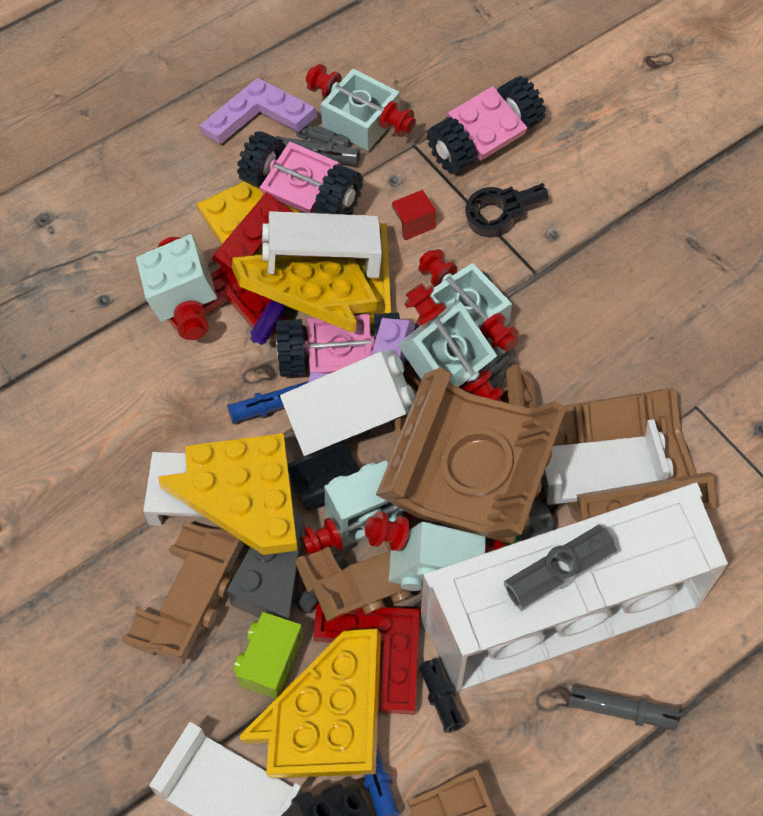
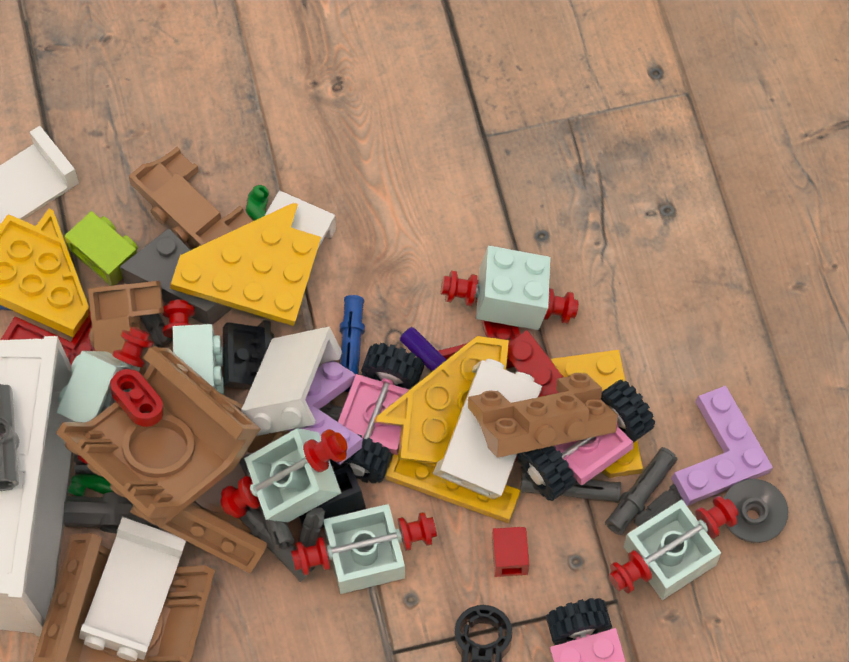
camera: 110 degrees right, 5 degrees up
(161, 541) = (257, 202): none -> green arm
(291, 74) = (766, 501): none -> dark grey dish
(312, 188) = (544, 420): none -> medium nougat bracket
(439, 497) = (139, 399): none -> red plate

